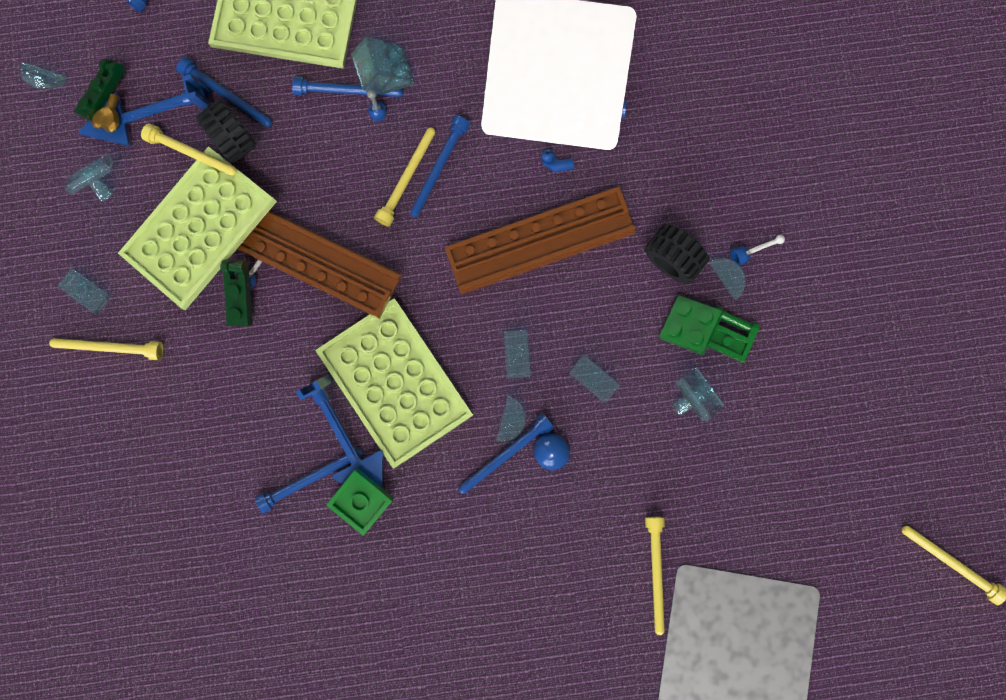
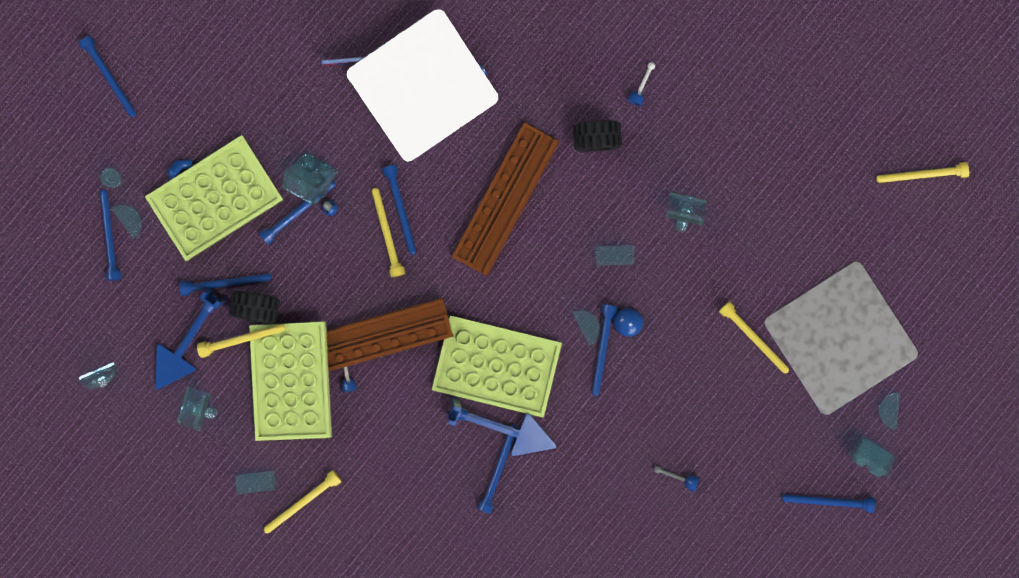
camera: 40 degrees left, 5 degrees up
(99, 88) = (145, 351): dark green plate -> none
(107, 116) = (168, 363): pearl gold rock -> none
(237, 292) = (353, 398): dark green plate -> none
(360, 501) = (542, 454): green plate -> none
(475, 656) = (690, 482): none -> hinge
(517, 354) = (554, 282): clear light blue plate -> none
(554, 164) = (470, 142): blue arm -> none
(691, 325) = (644, 170): green plate -> none
(730, 275) = (640, 116): clear light blue plate -> none
(730, 342) = (675, 159): green plate -> none

